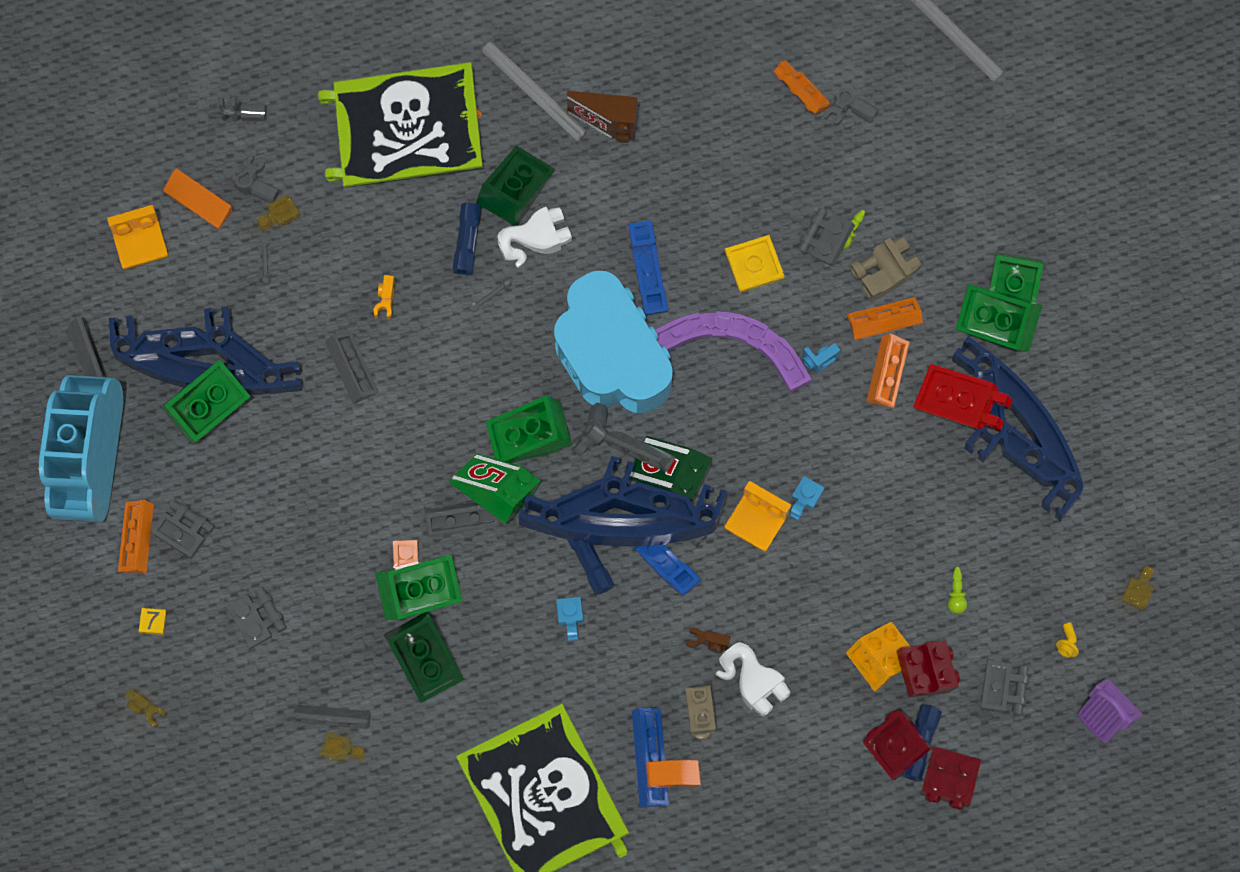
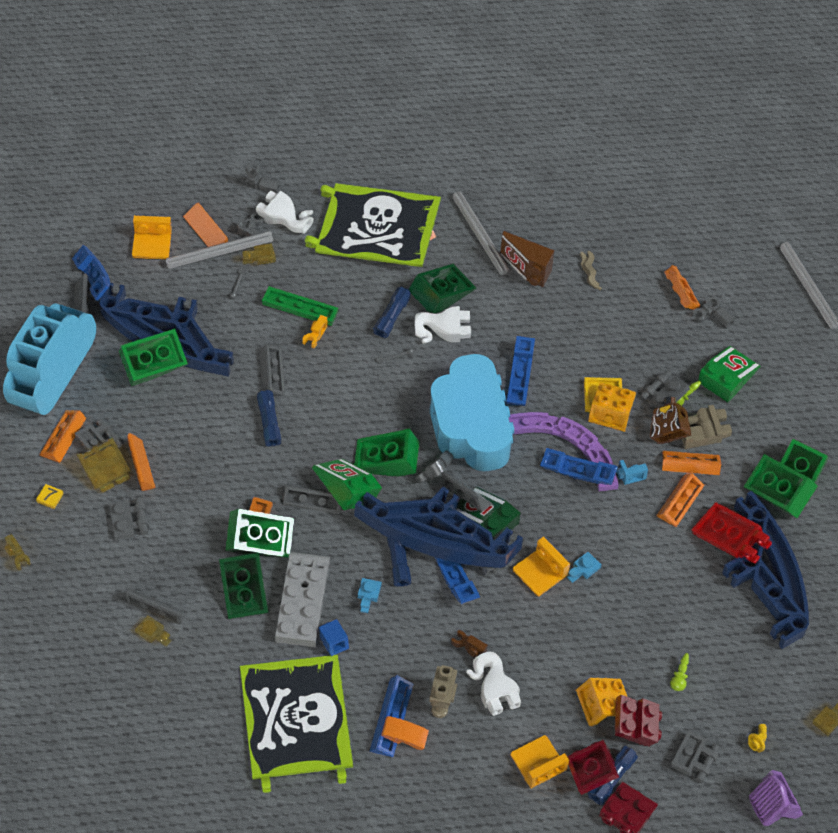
camera: 15 degrees right, 15 degrees down
(85, 305) = (97, 275): none -> blue slope
(203, 562) = (105, 466): none -> clear yellow plate
(227, 225) = (219, 249): none -> light grey axle
(243, 541) = (140, 462): none -> orange slope
(284, 145) = (282, 211): none -> white hips
(352, 267) = (299, 305): none -> green plate
(379, 444) = (269, 420): none -> dark blue axle
(500, 659) = (302, 606): none -> light grey hinge
(551, 686) = (333, 637): none -> blue brick
(676, 92) = (586, 265): none -> dark tan hair
(758, 373) = (578, 468): none -> blue slope
(771, 277) = (611, 406): none -> light orange bracket
(833, 754) = (539, 761): none -> light orange bracket
(846, 278) = (669, 422): none -> reddish brown torso
(892, 184) = (727, 373): none -> green slope

